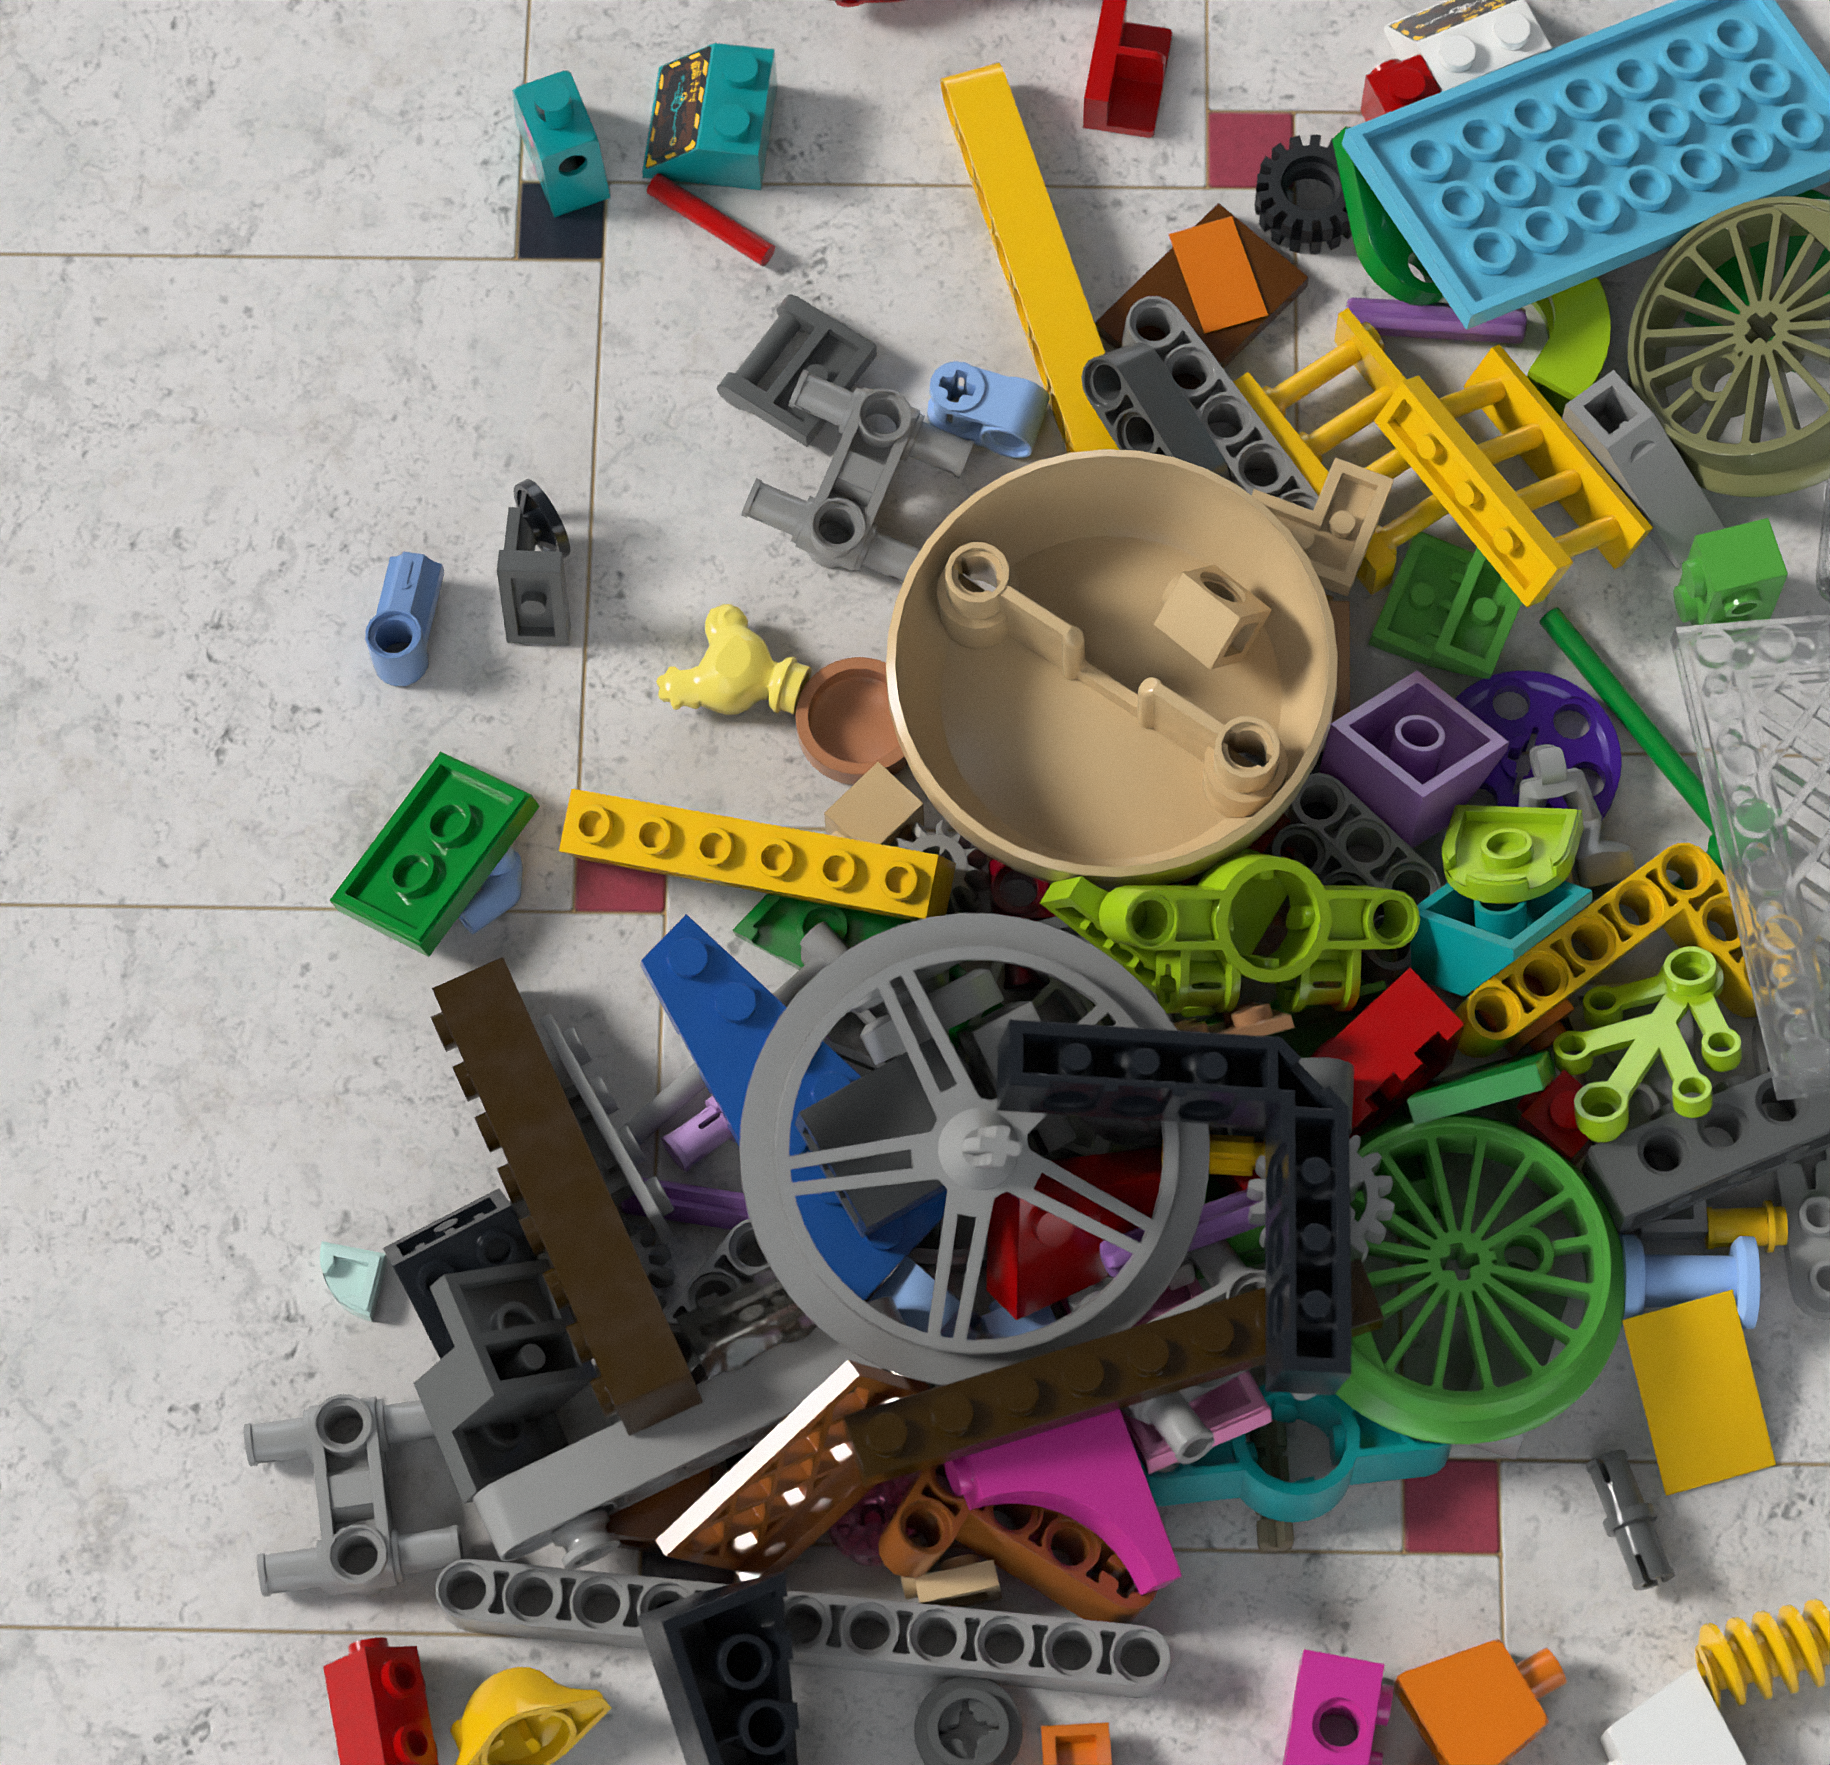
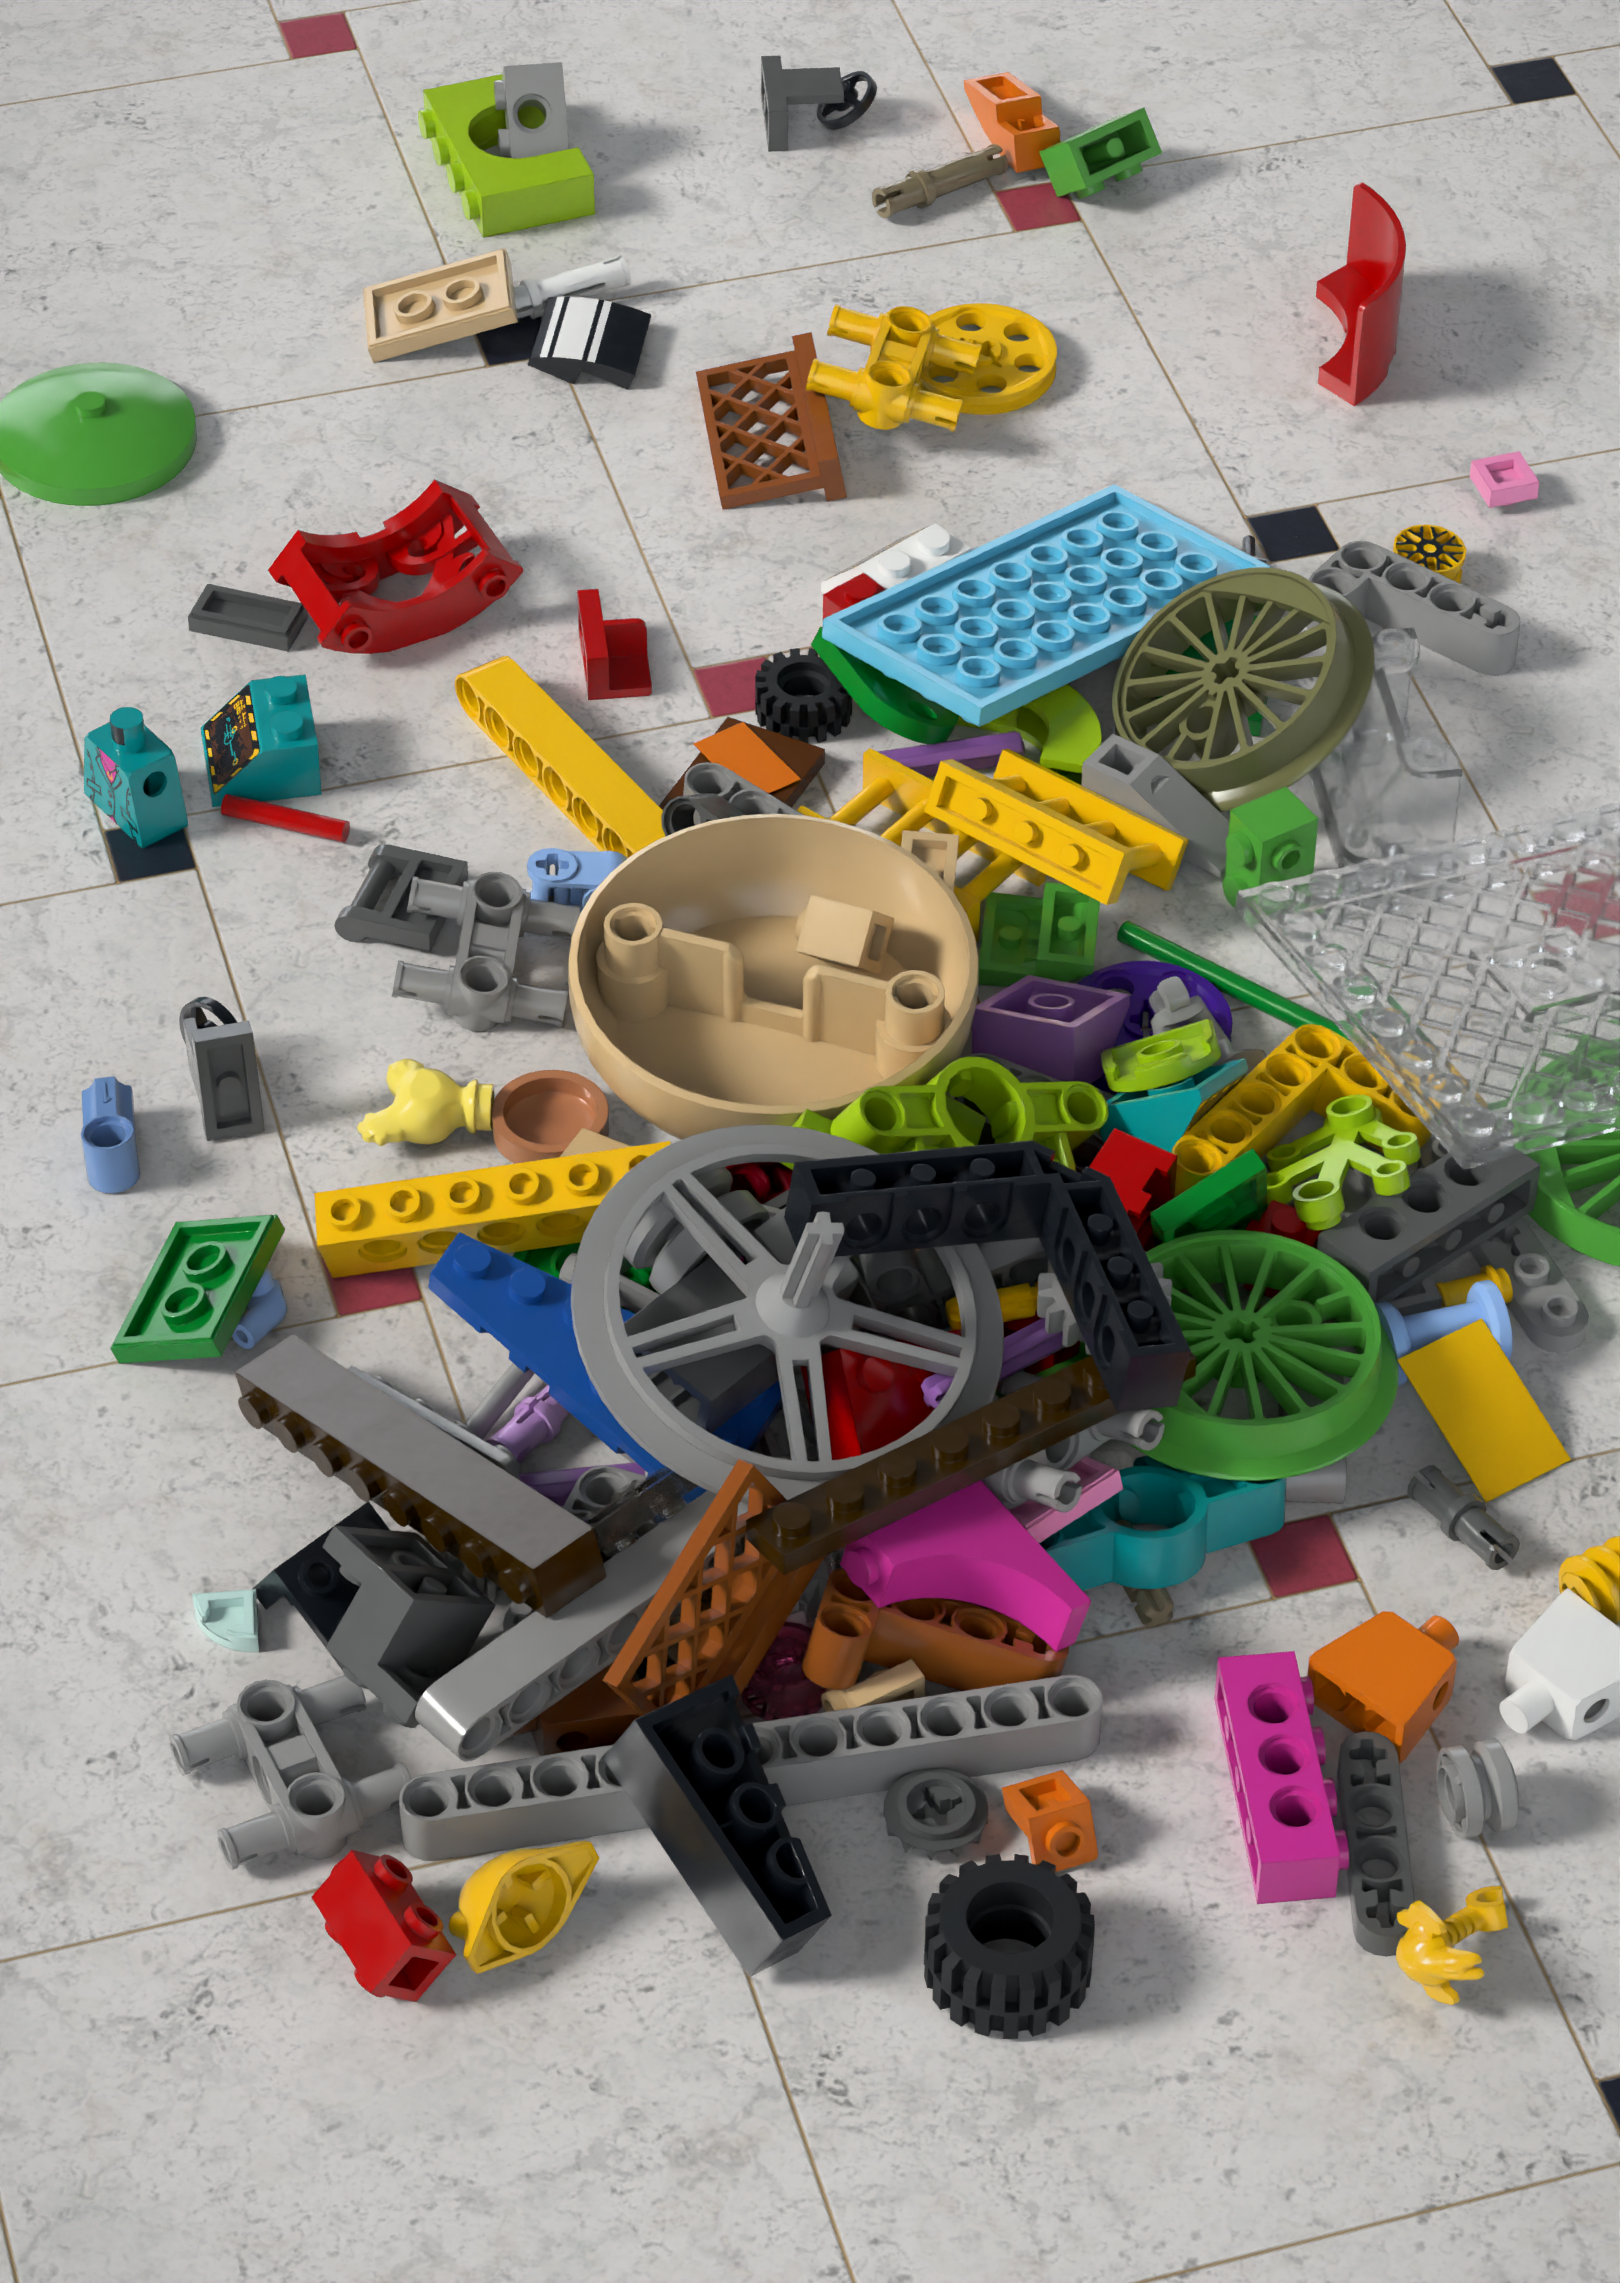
camera: 20 degrees left, 25 degrees down
(585, 1539) = (531, 1723): light grey bush -> none

